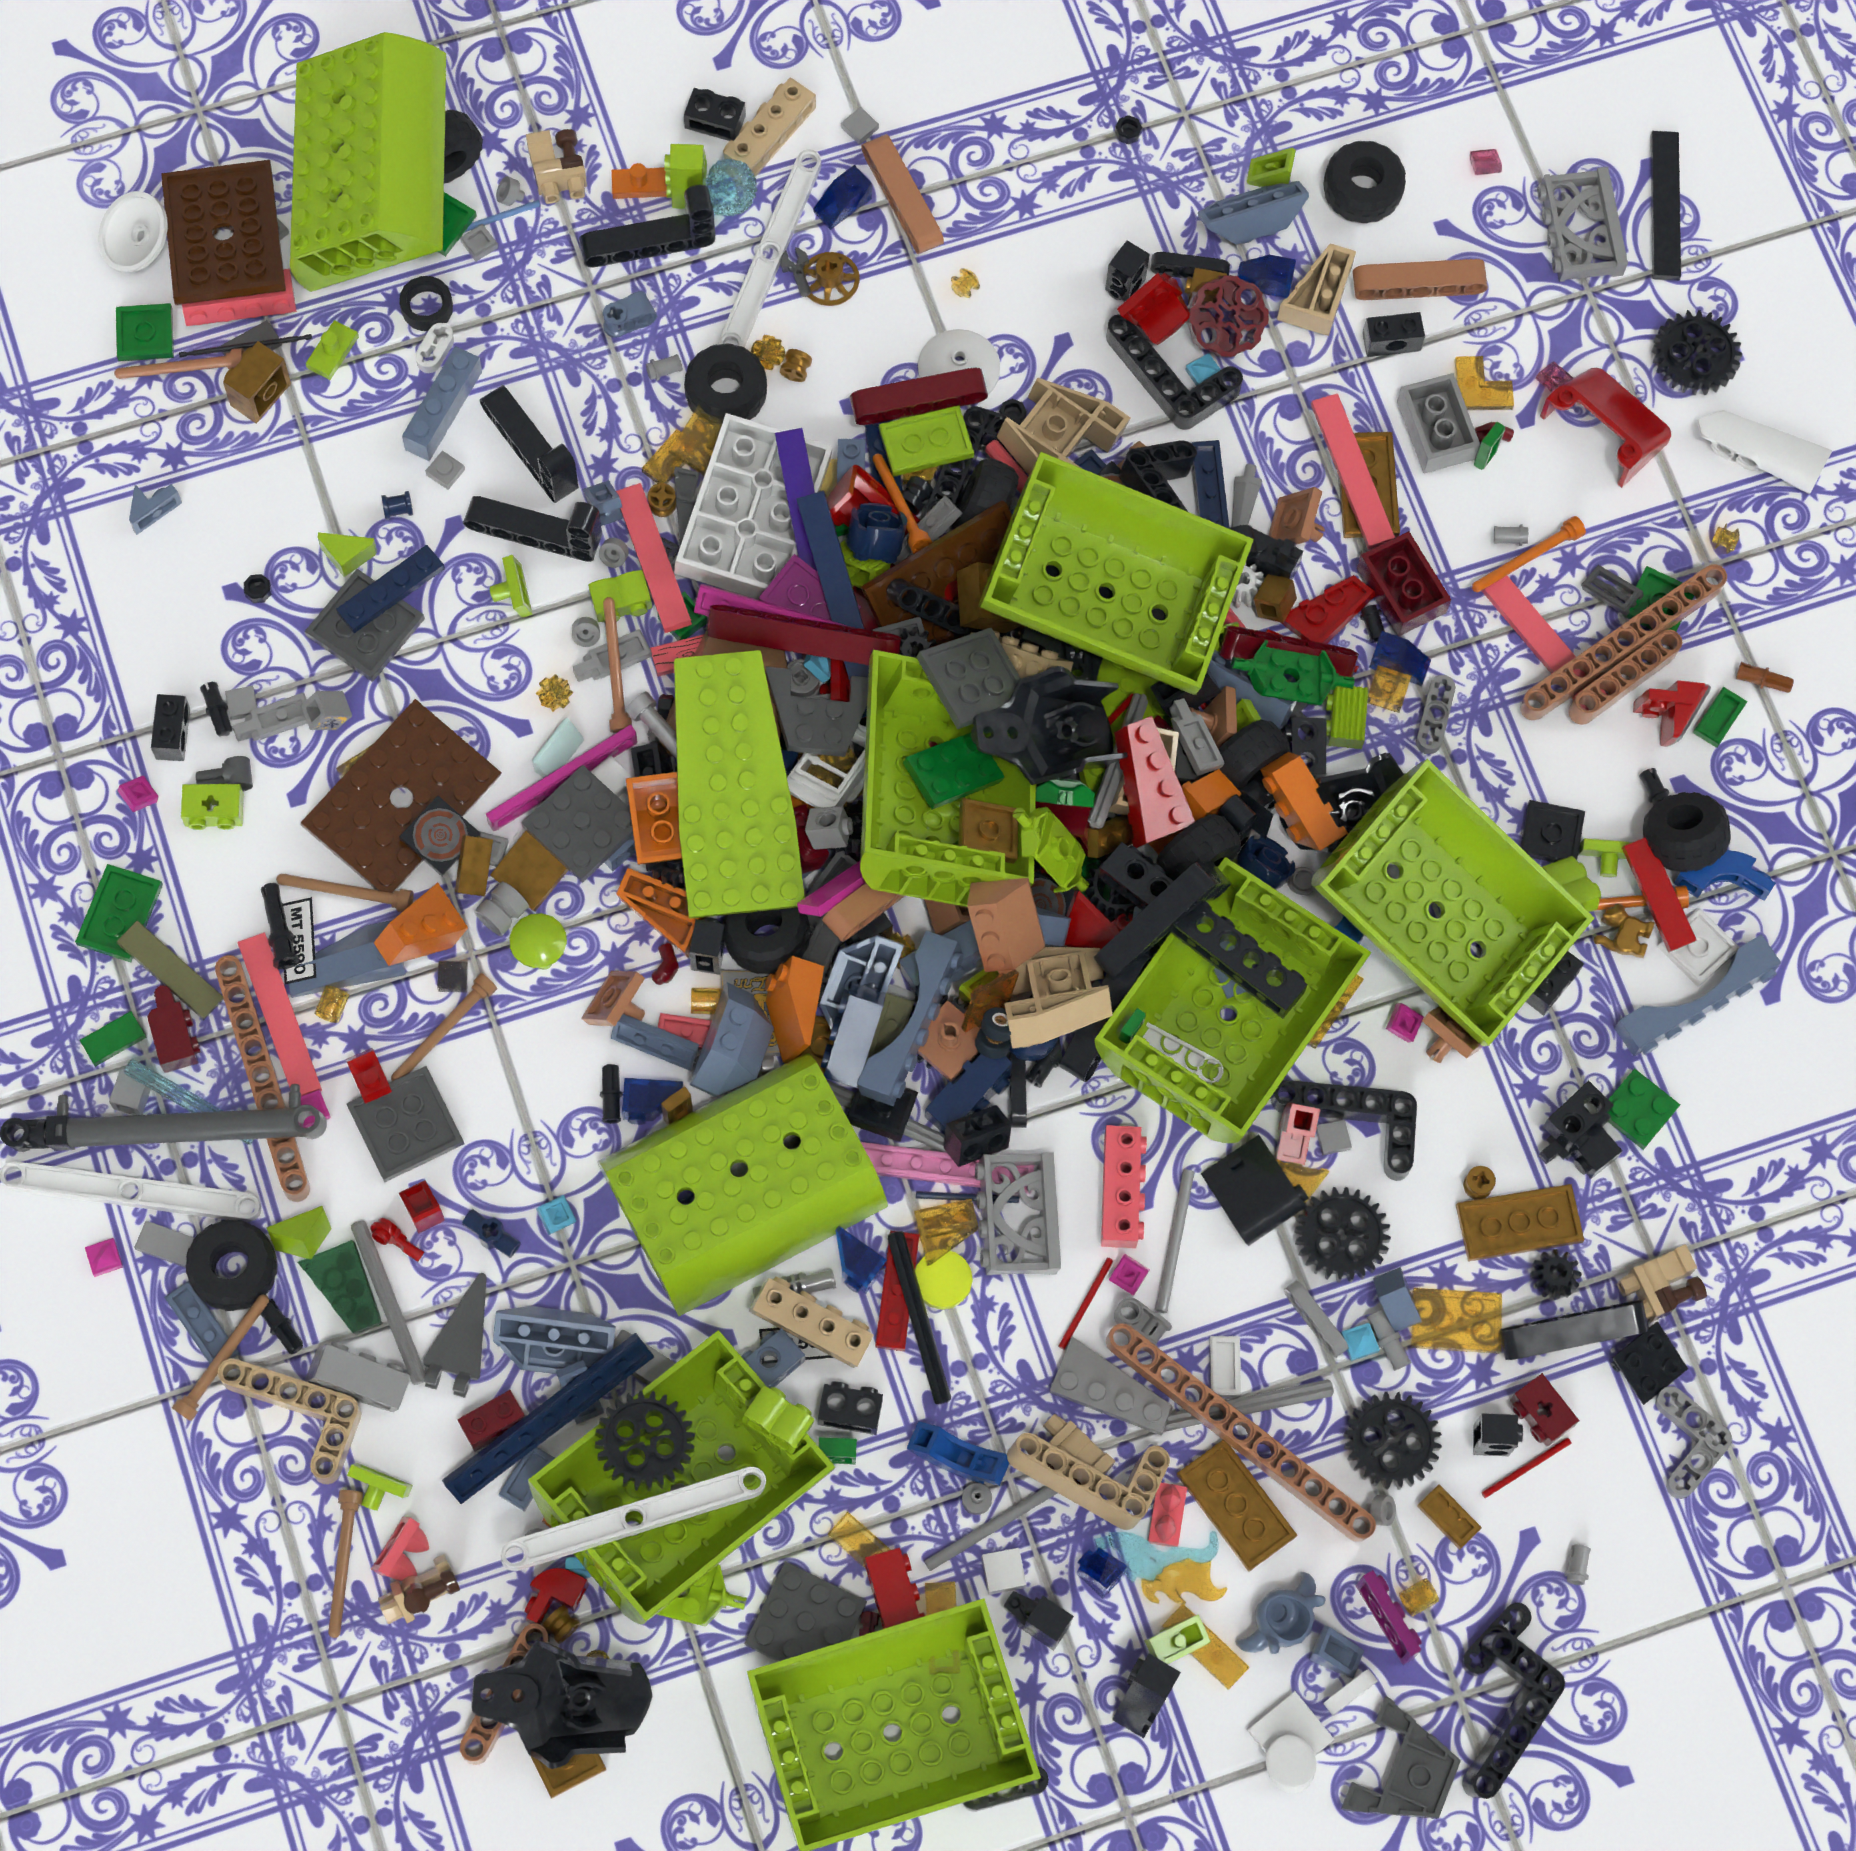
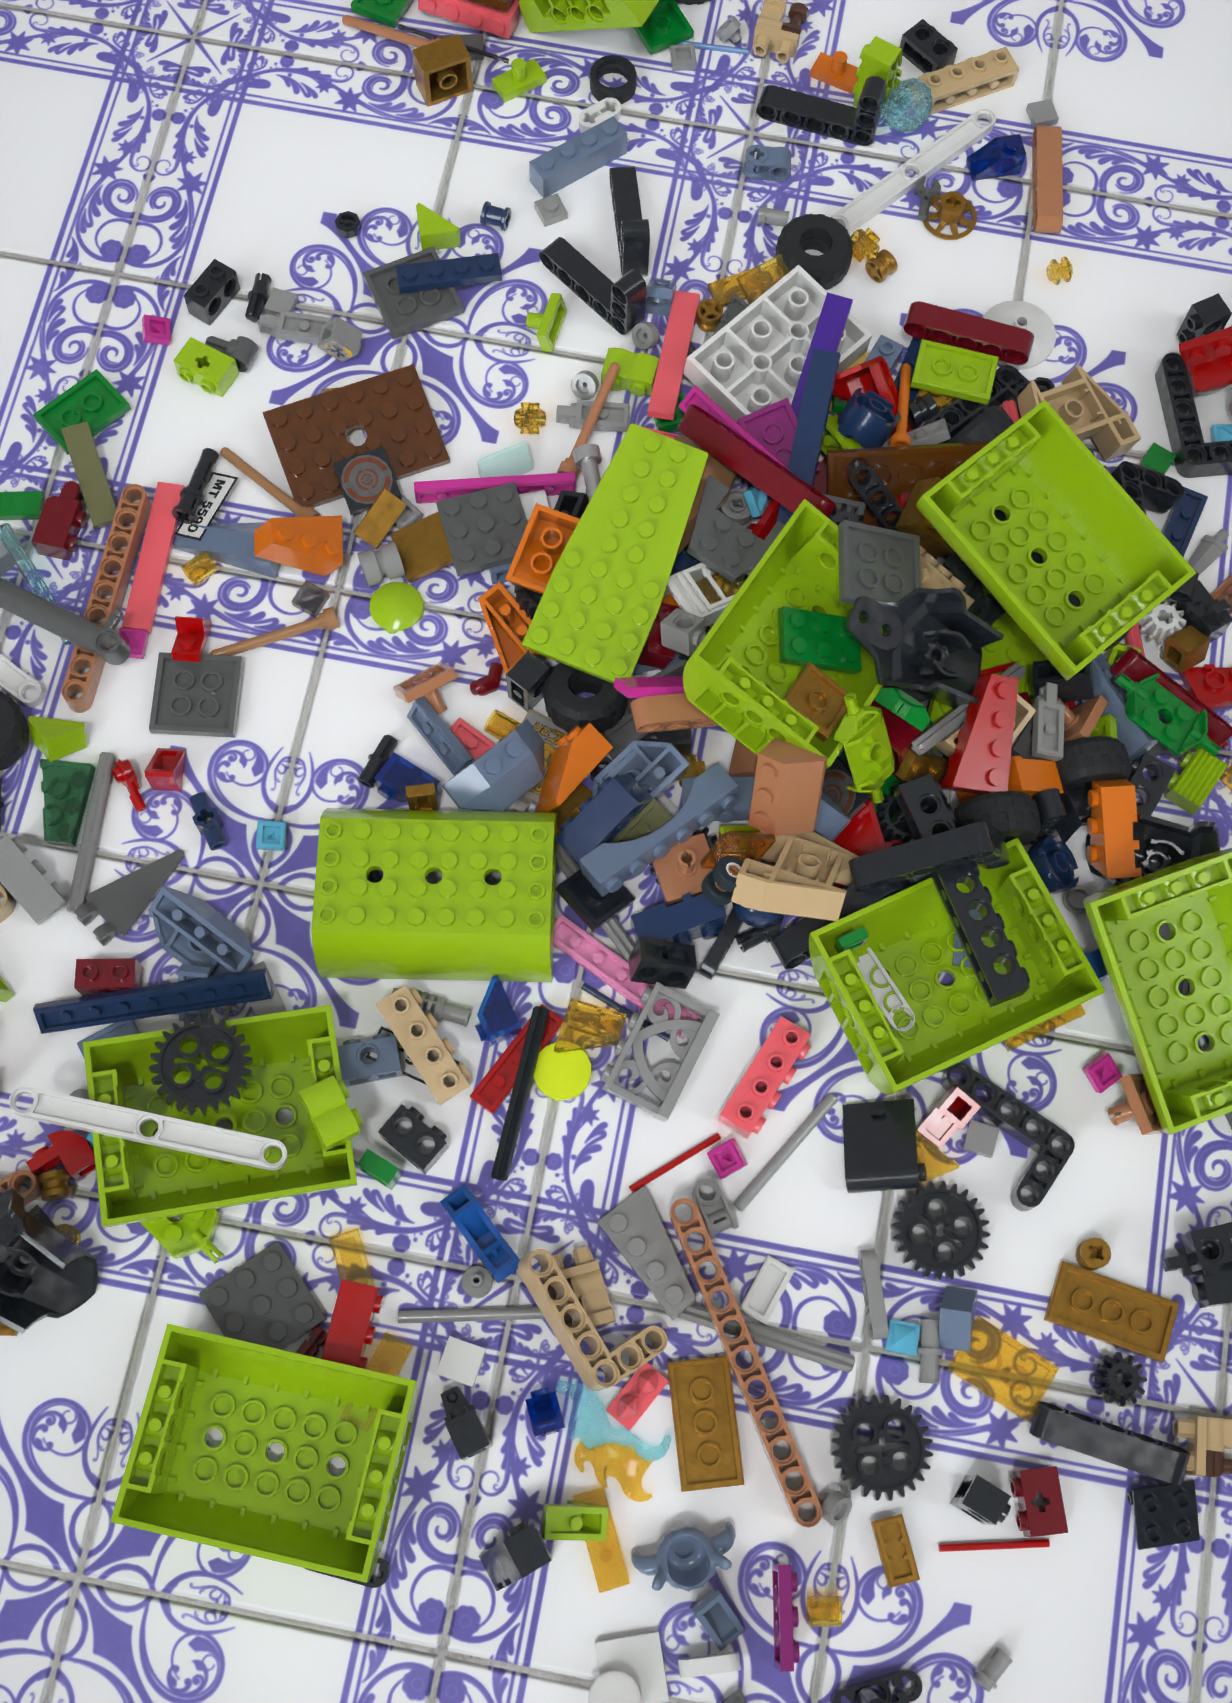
camera: 30 degrees right, 0 degrees up
(147, 512) = (300, 127): sand blue slope -> none
(1154, 426) = (1158, 459): none -> green tile
(1703, 1446) = (1176, 1622): light grey beam -> none

